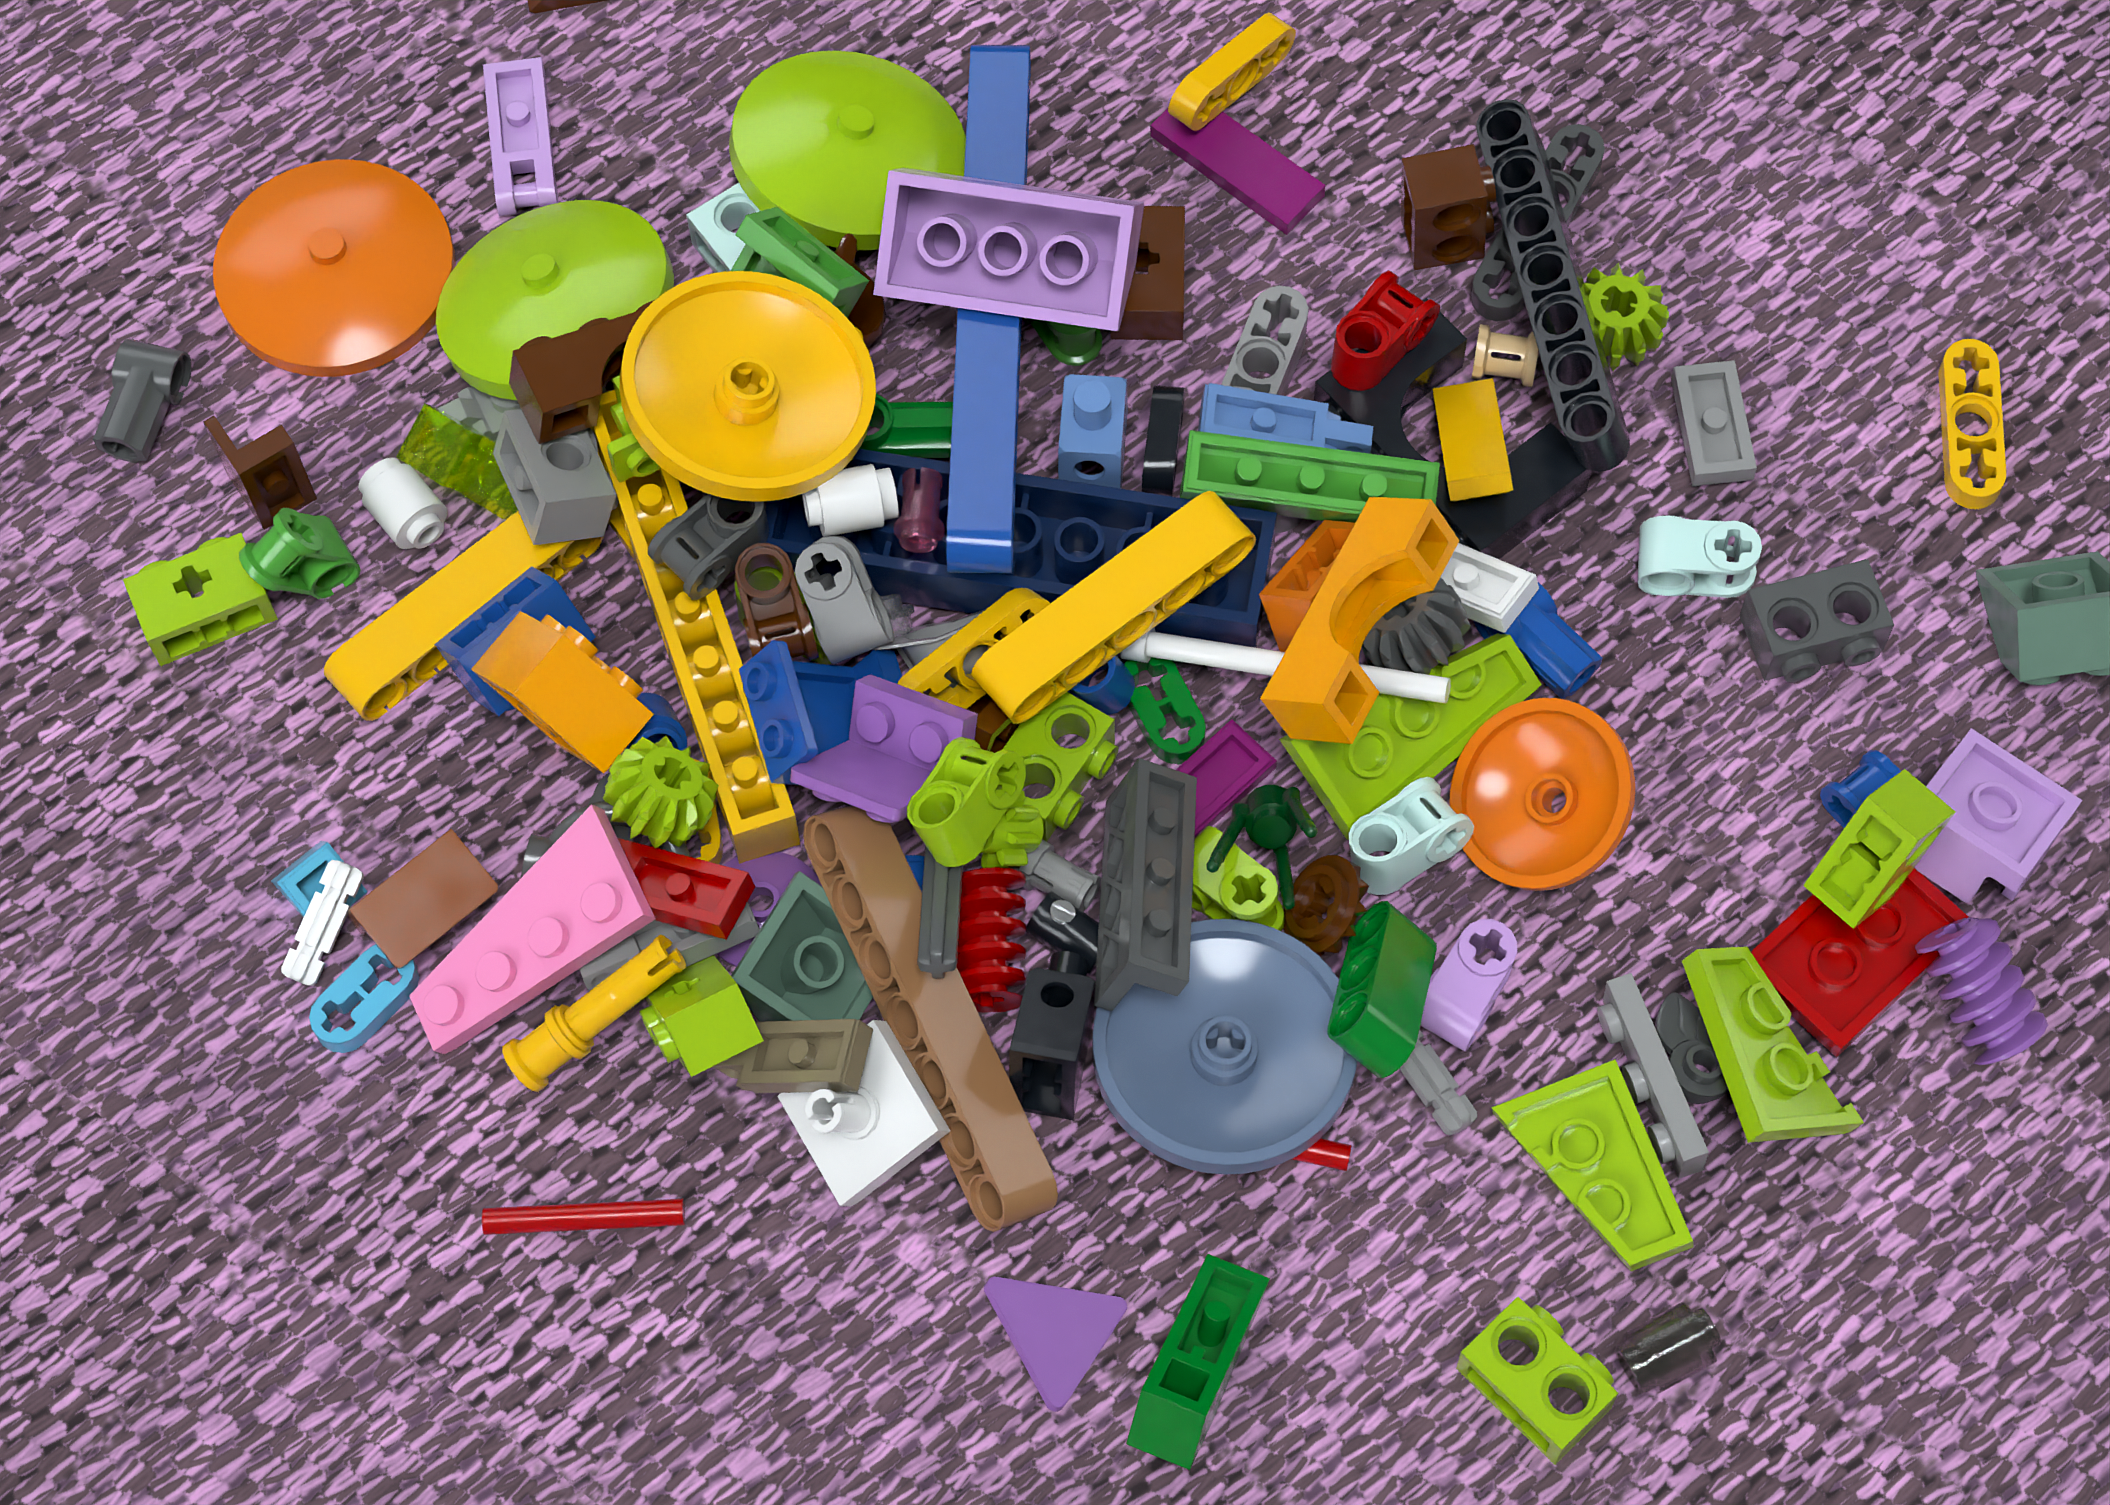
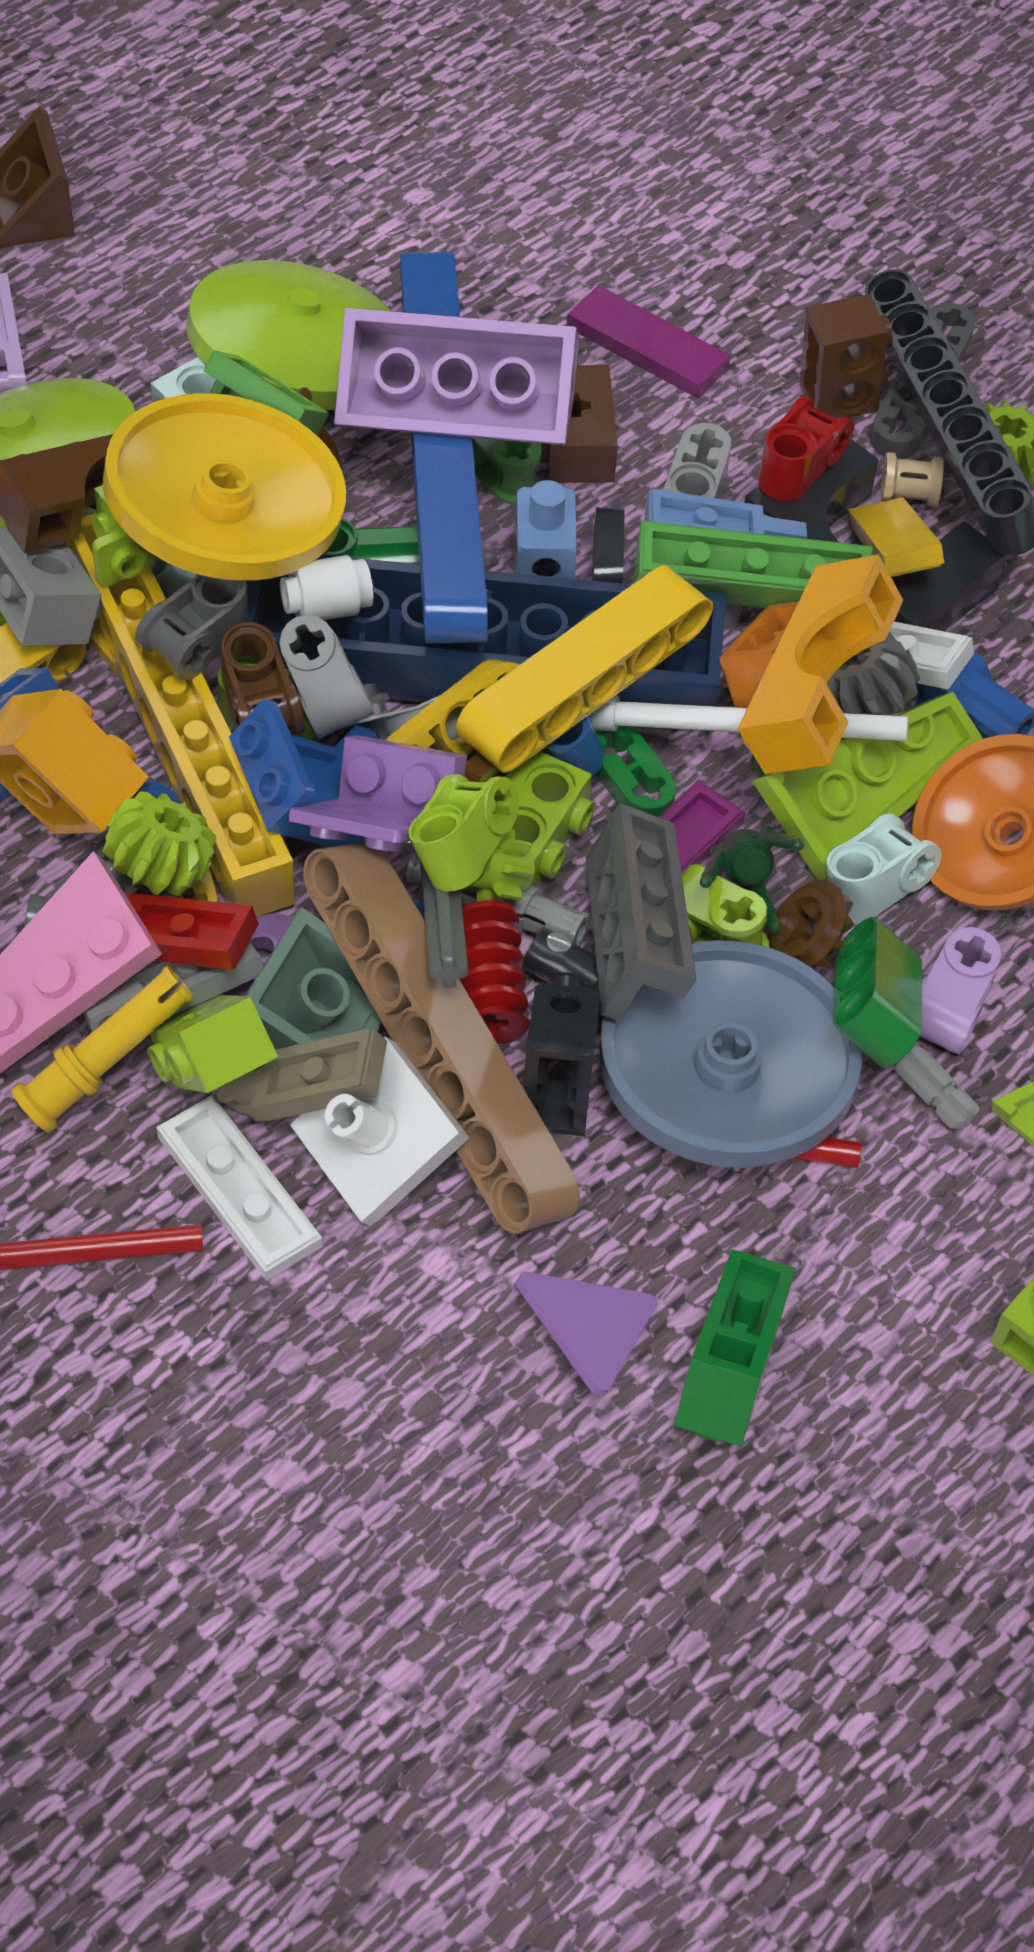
camera: 10 degrees left, 10 degrees down
(723, 1161) = (239, 1187): none -> white tile
(919, 520) = (393, 608): clear pink pin -> none
(1231, 71) = (636, 267): yellow beam -> none

